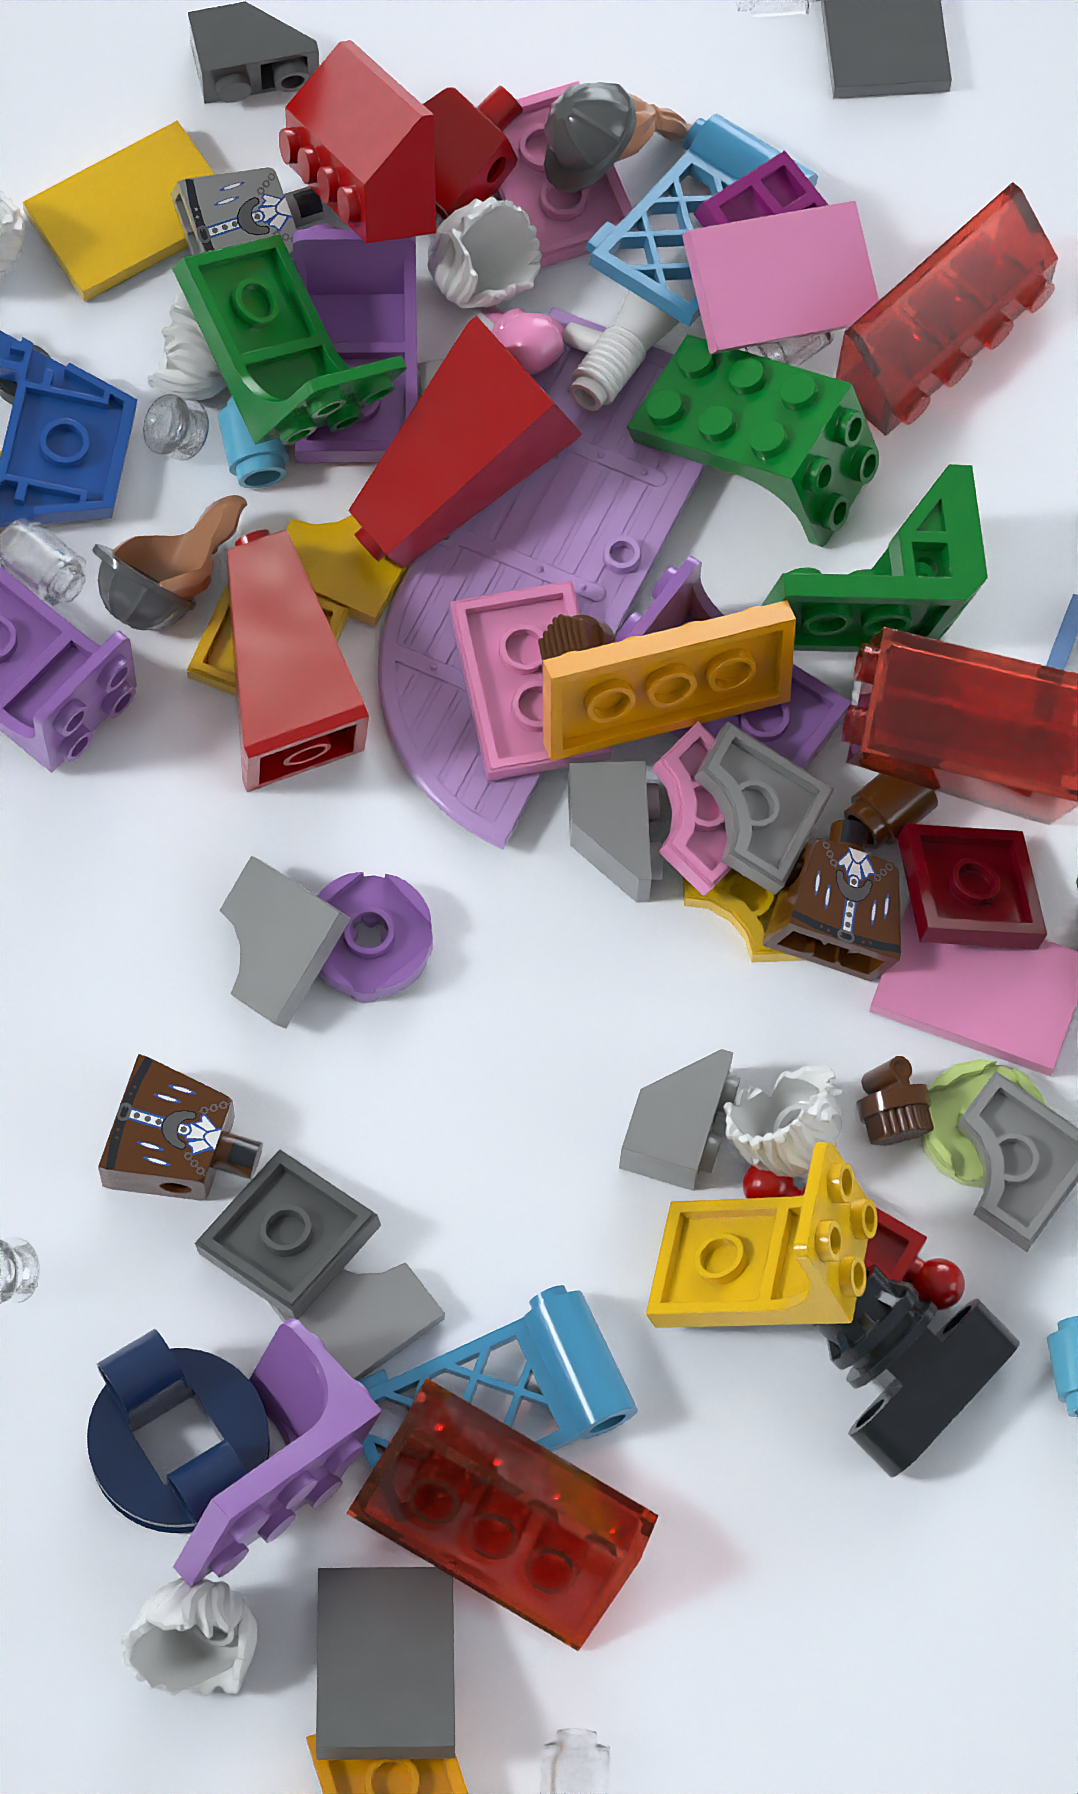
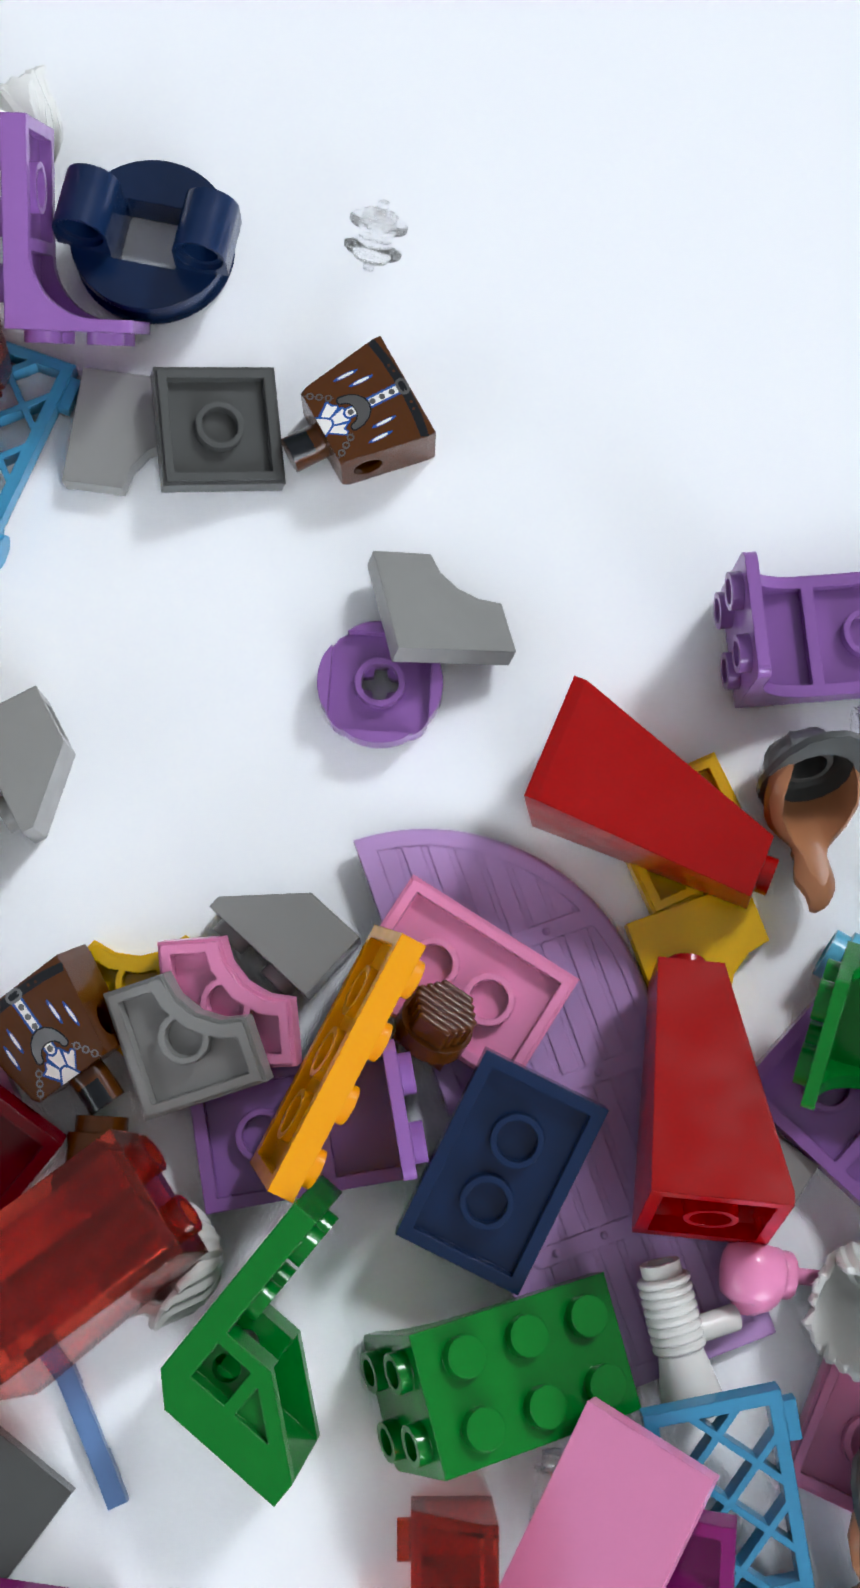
camera: 135 degrees right, 10 degrees up
(624, 531) = (501, 1171): none -> dark blue plate

